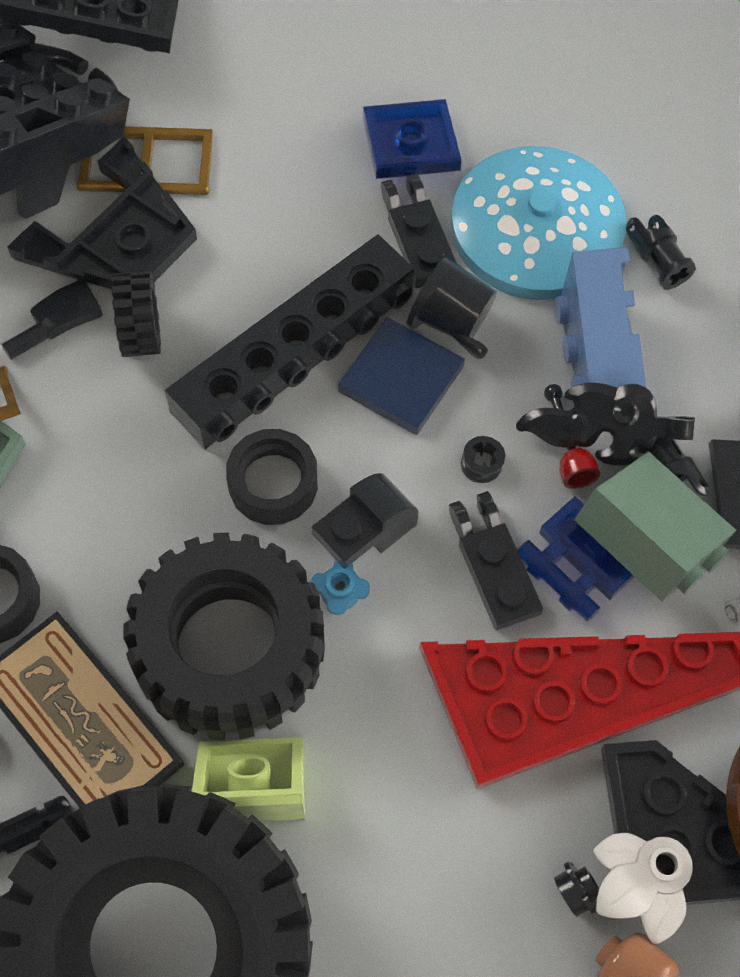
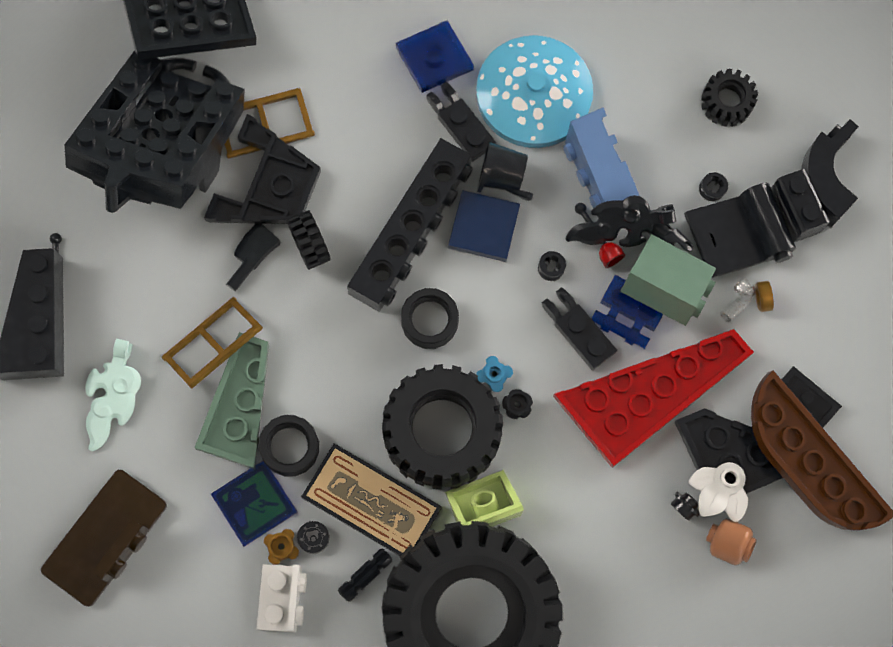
camera: 20 degrees left, 10 degrees up
(363, 630) = (517, 396): none -> black plate
(371, 516) = (497, 331): black brick -> none
(661, 250) = (618, 89): black piece -> none

